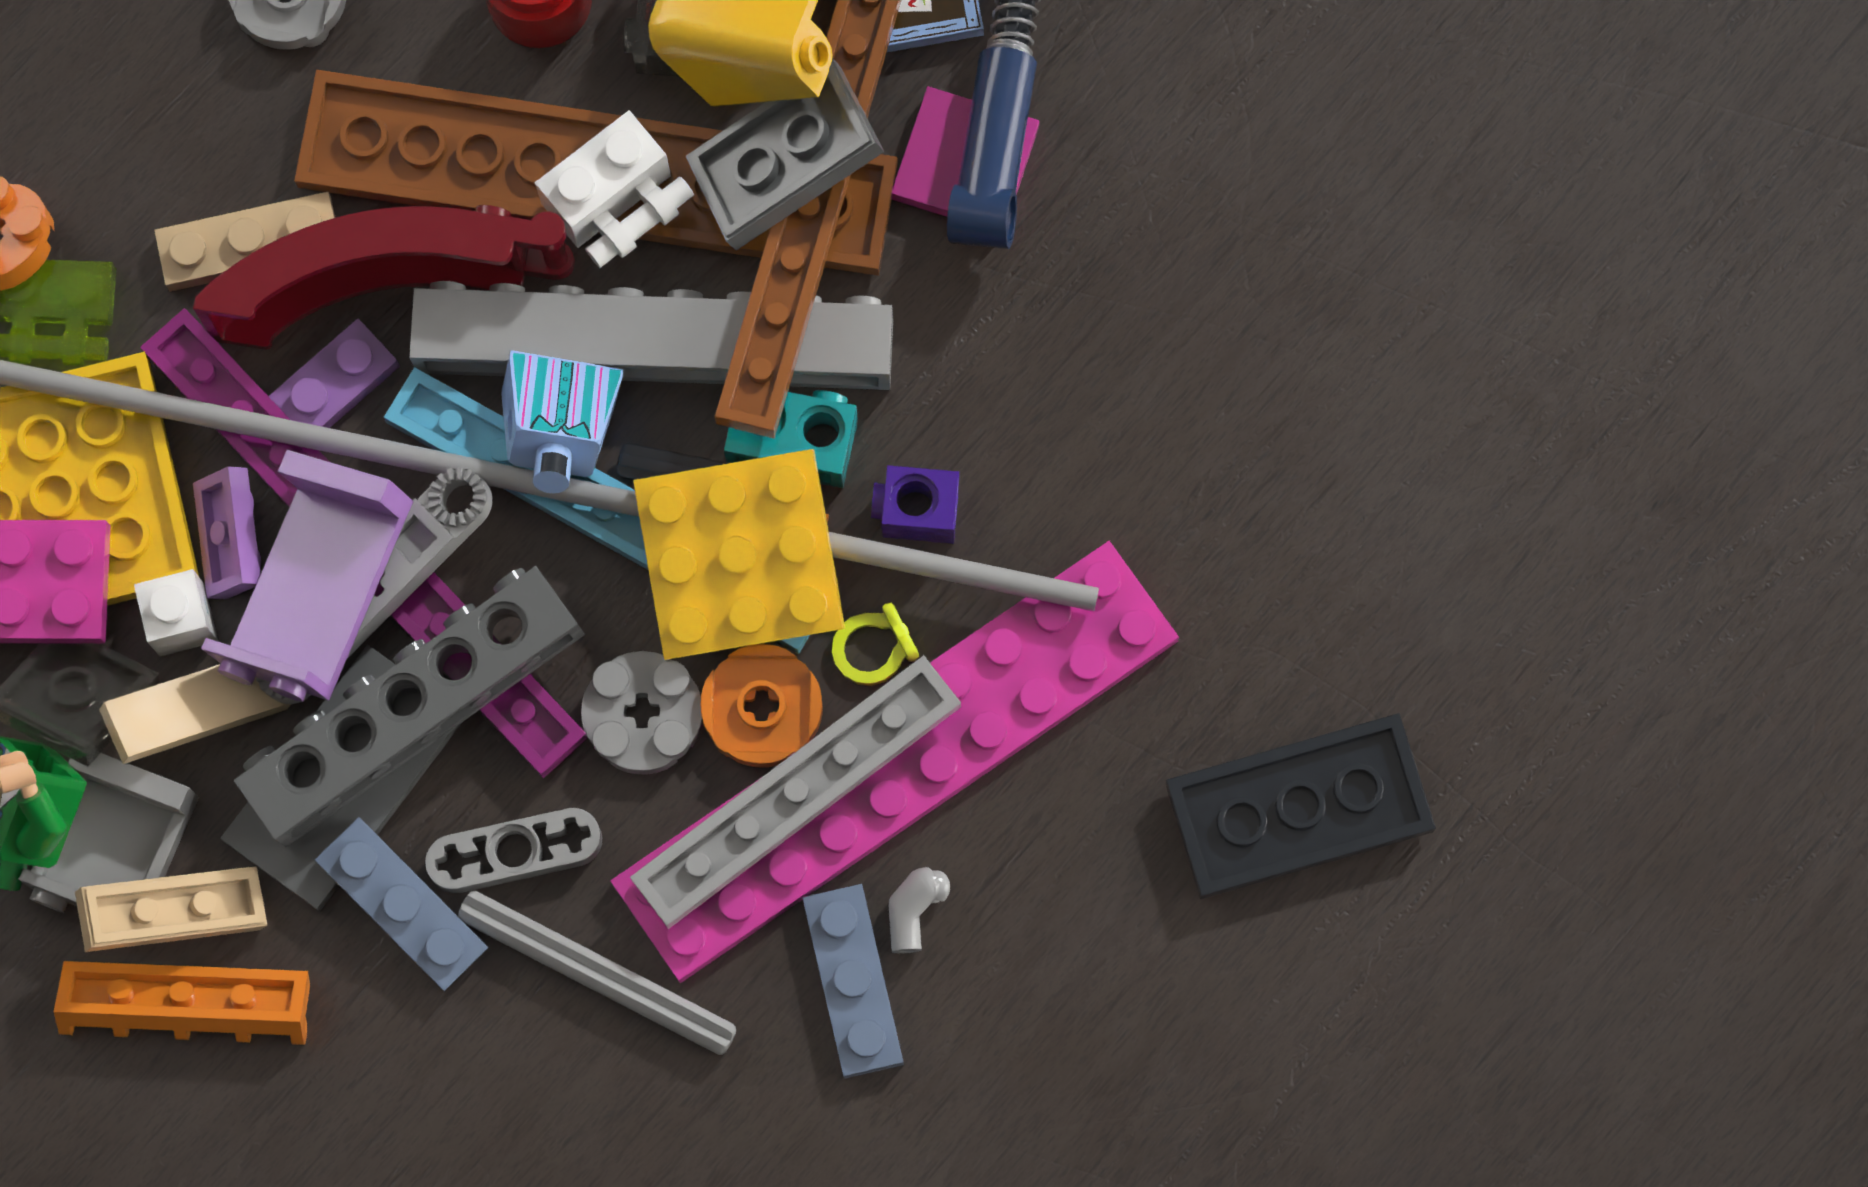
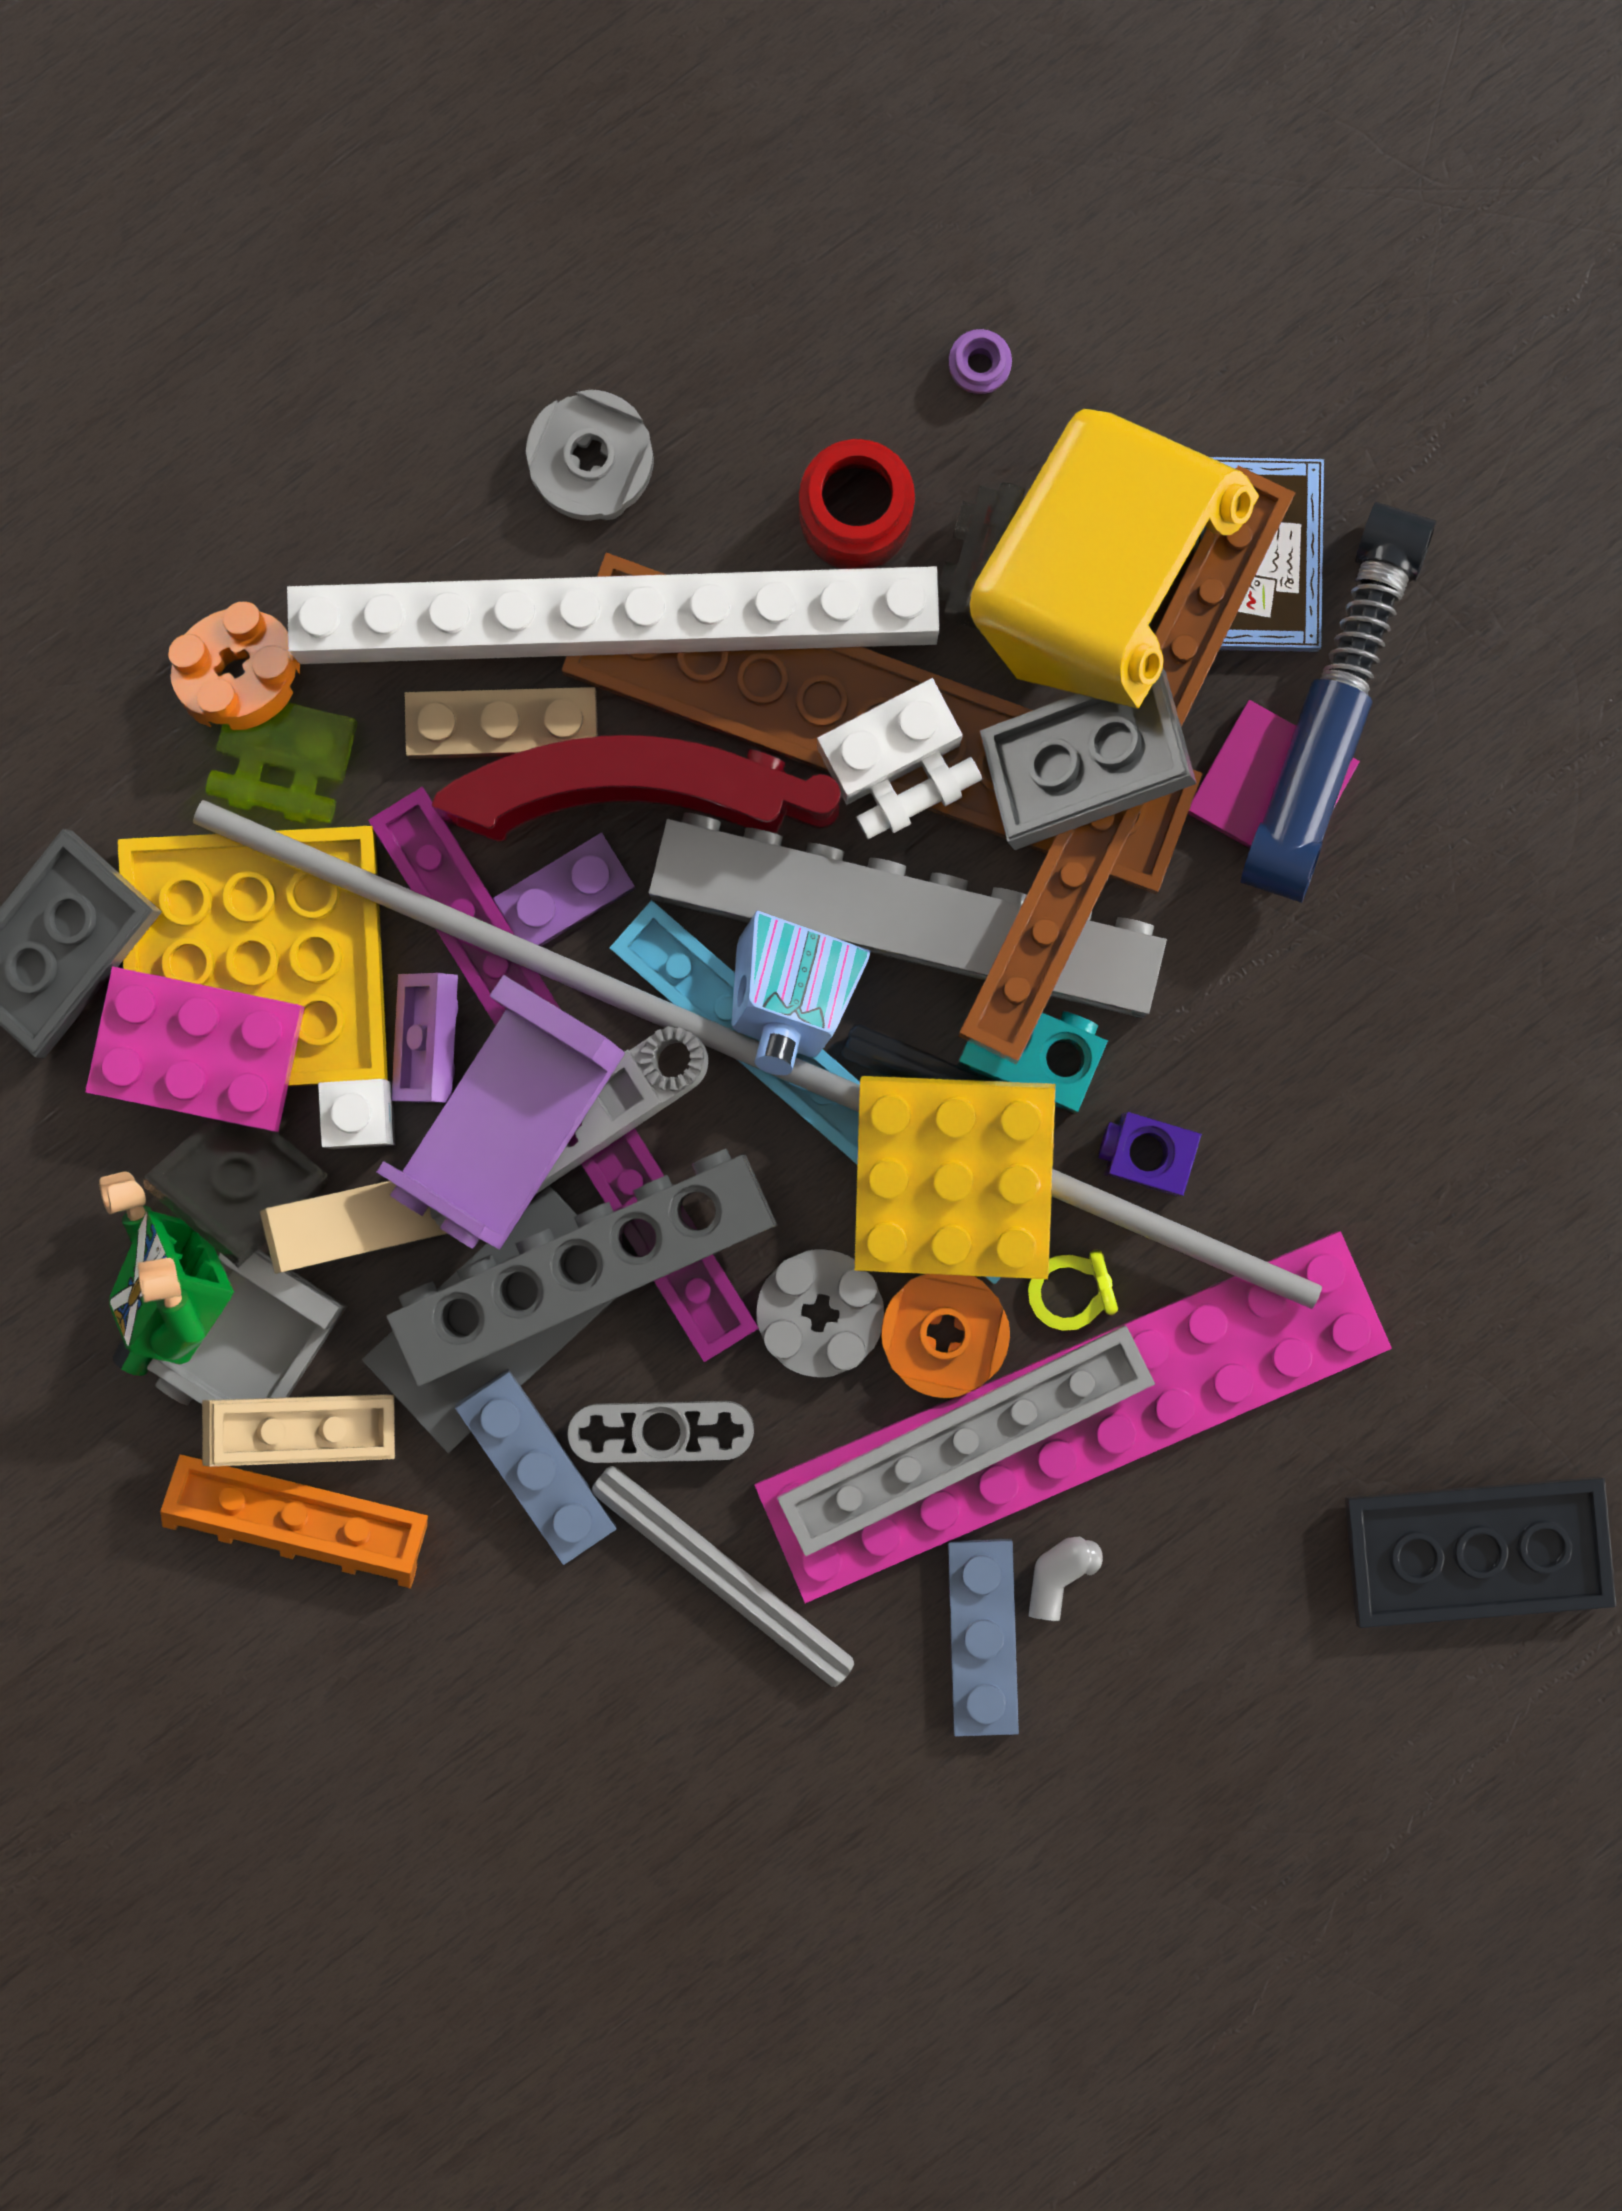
camera: 10 degrees right, 10 degrees up
(330, 117) = (613, 615): none -> white brick

